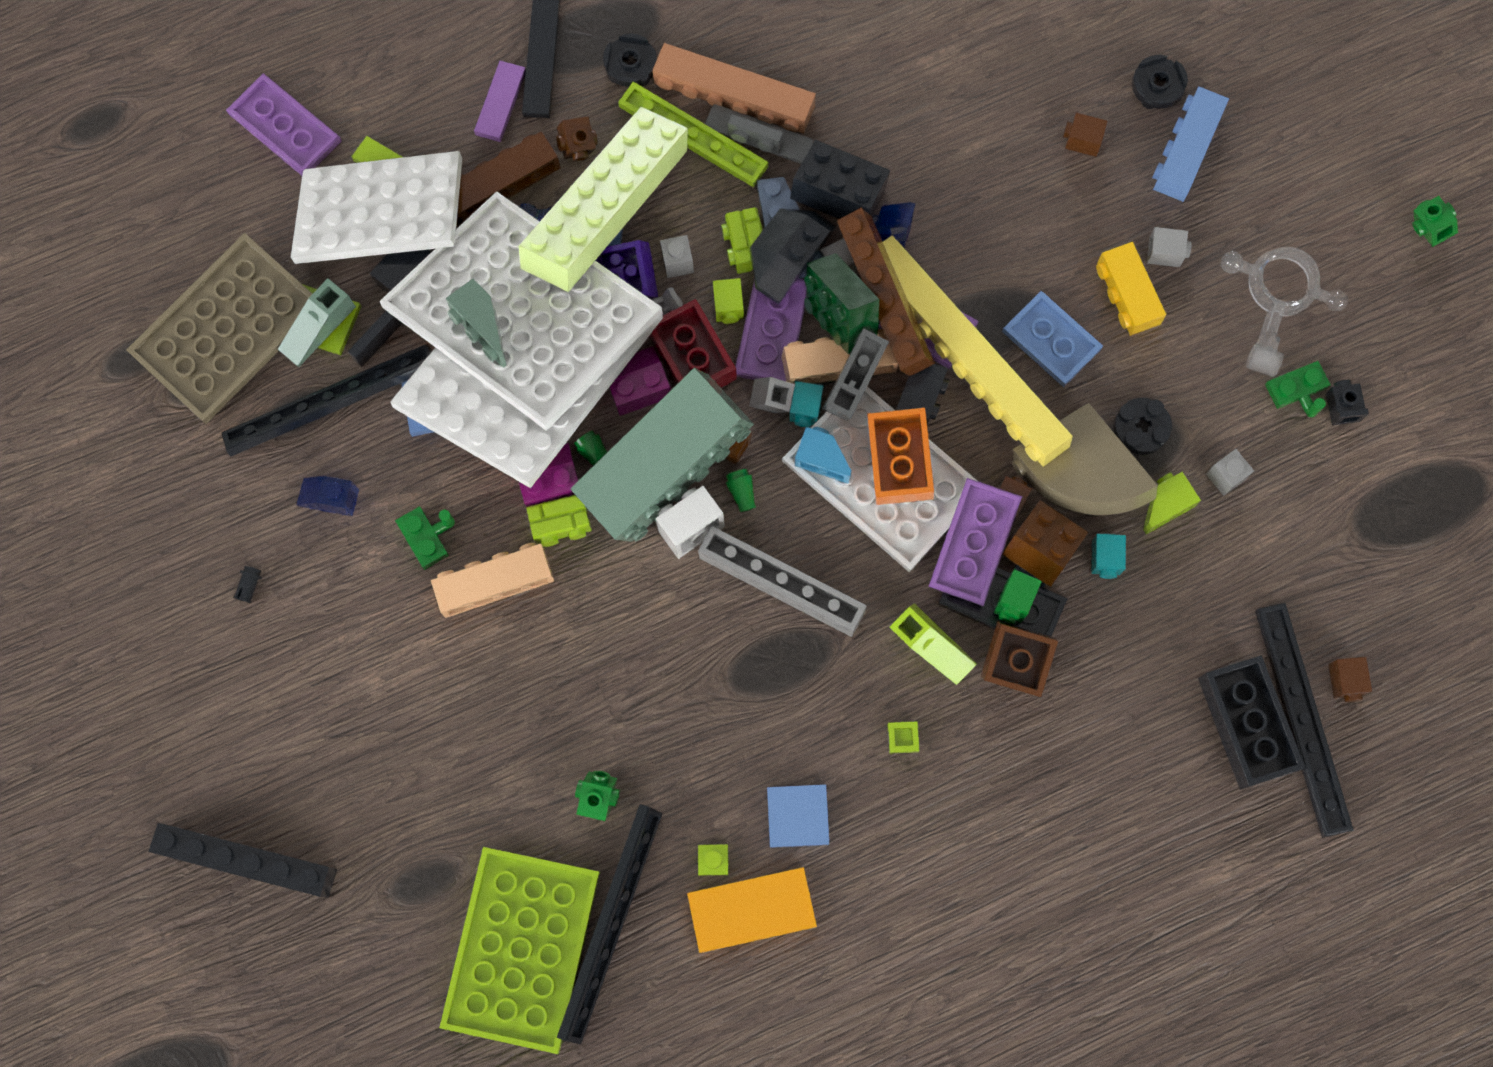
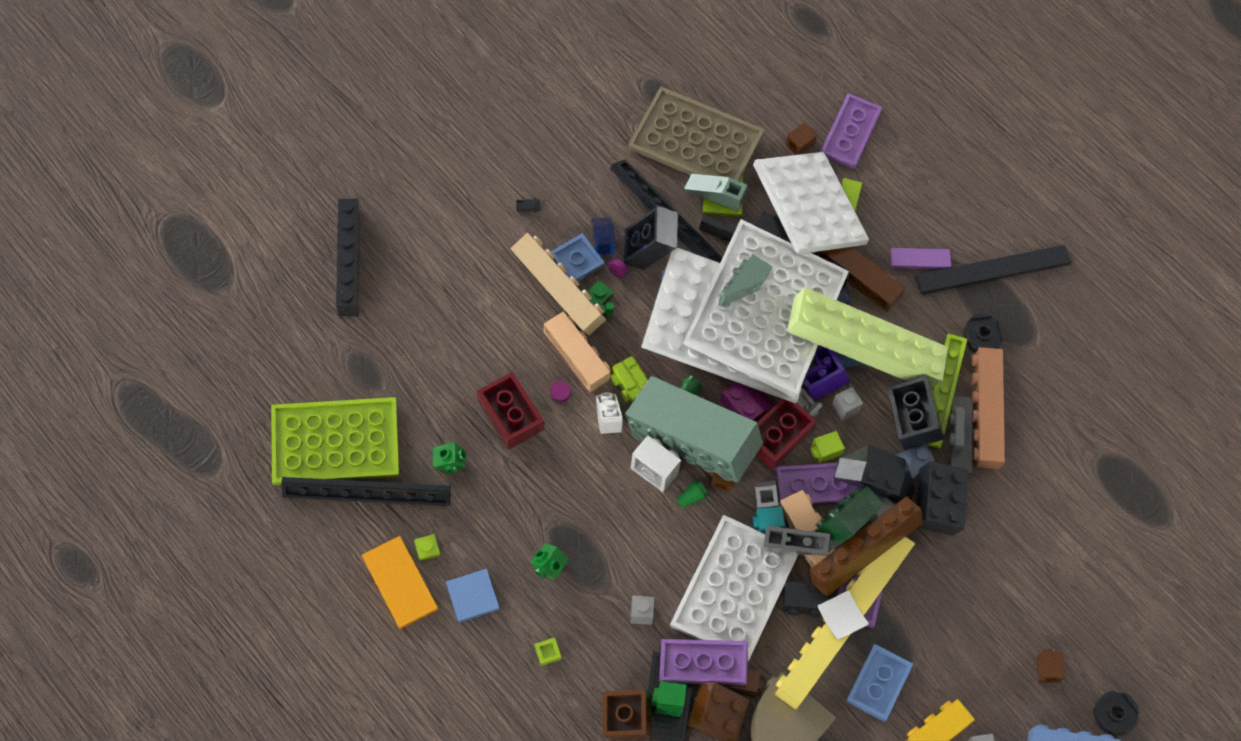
camera: 65 degrees right, 10 degrees down
(275, 191) = (801, 139): none -> reddish brown brick
(353, 541) = (578, 257): none -> medium blue plate
(363, 429) = (651, 237): none -> black brick
(385, 576) = (558, 284): none -> tan brick
(386, 489) = (618, 268): none -> magenta tile
(542, 620) = (559, 391): none -> magenta tile
(553, 693) = (510, 410): none -> dark red brick
(554, 481) = (660, 366): magenta slope -> none
(576, 138) = (915, 310): reddish brown brick -> none
(597, 563) = (608, 413): none -> white slope
(720, 174) = (916, 413): none -> black brick
(741, 230) = (881, 439): lime brick -> none
(781, 581) = (633, 538): light grey brick -> none
(784, 701) = (549, 561): none -> green brick
(822, 455) = (733, 537): dark azure slope -> none
(882, 599) = (642, 610): none -> light grey brick
(895, 221) = (926, 545): clear blue slope -> none
(900, 456) = (748, 590): orange brick -> none
(933, 644) = (621, 651): slope -> none
(969, 350) = (842, 615): none -> white sticker

